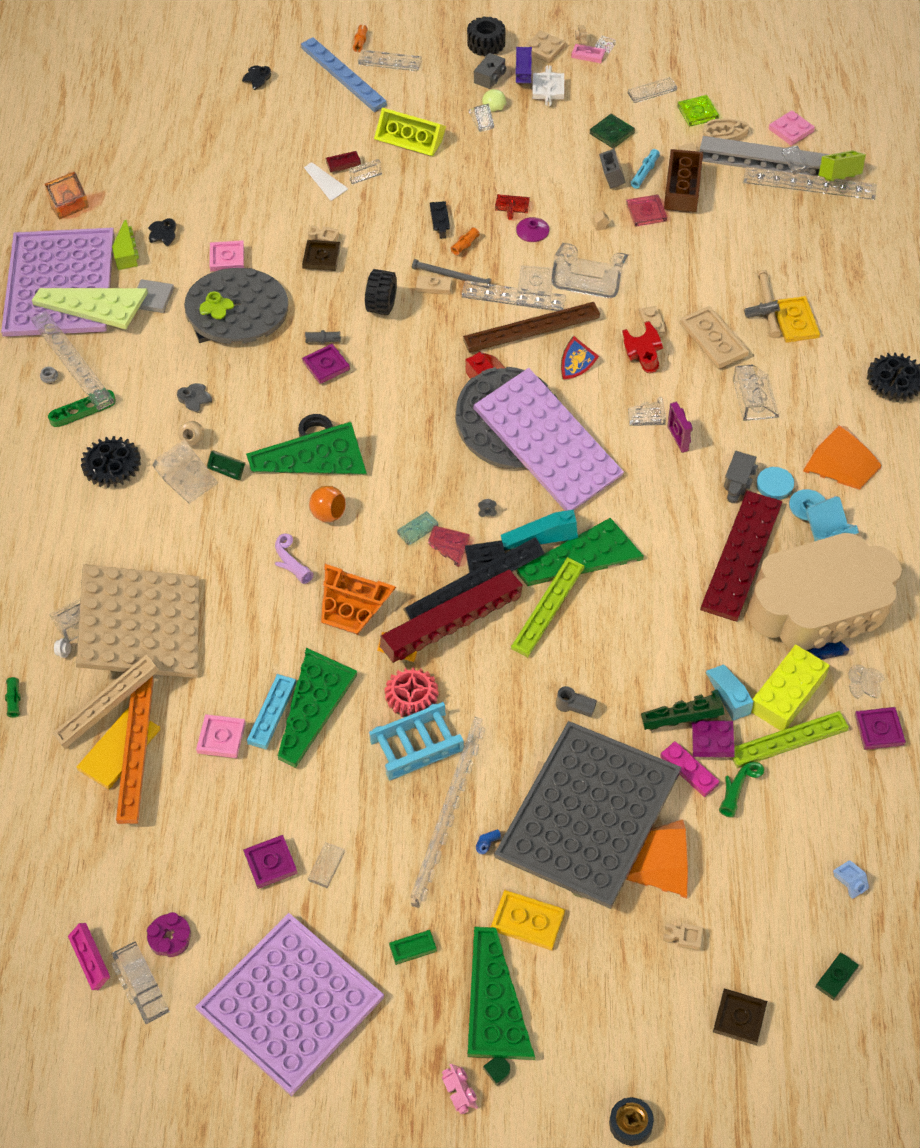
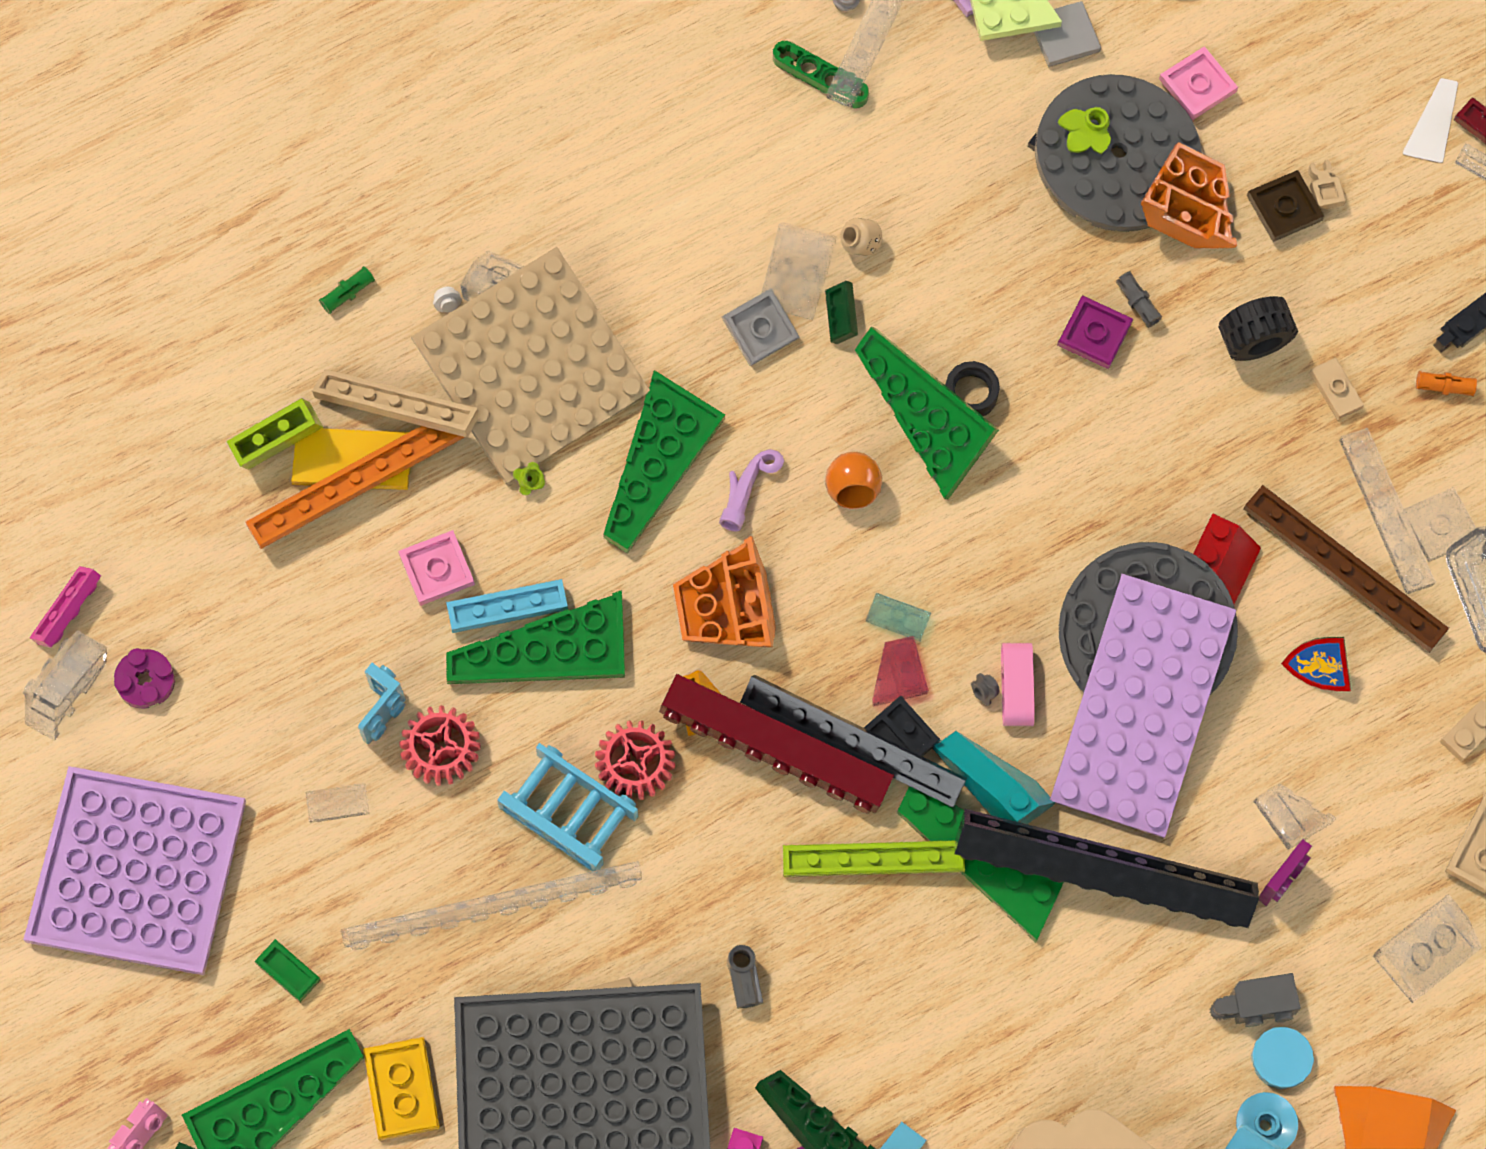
camera: 55 degrees right, 15 degrees up
(73, 775) = (274, 434): none -> lime brick
(110, 461) = (749, 146): black gear -> none
(193, 396) = (930, 203): dark grey plate -> none
(203, 660) = (537, 478): none -> lime plate
(204, 505) = (760, 327): none -> light grey tile
(238, 587) = (663, 448): none -> green wing
(270, 861) = (301, 734): magenta plate -> none
(279, 794) = (389, 705): none -> medium azure bracket
(289, 287) = (1191, 200): none -> orange wedge
(331, 778) = (452, 750): none -> coral gear
(458, 275) = (1357, 343): dark grey bar -> none
(484, 841) = (479, 975): blue arm -> none
(489, 488) = (1017, 684): none -> bright pink beam
(626, 500) = (1106, 868): none -> black brick
(644, 347) = (1407, 746): red piece -> none
(741, 556) = (1126, 1073): dark red plate -> none

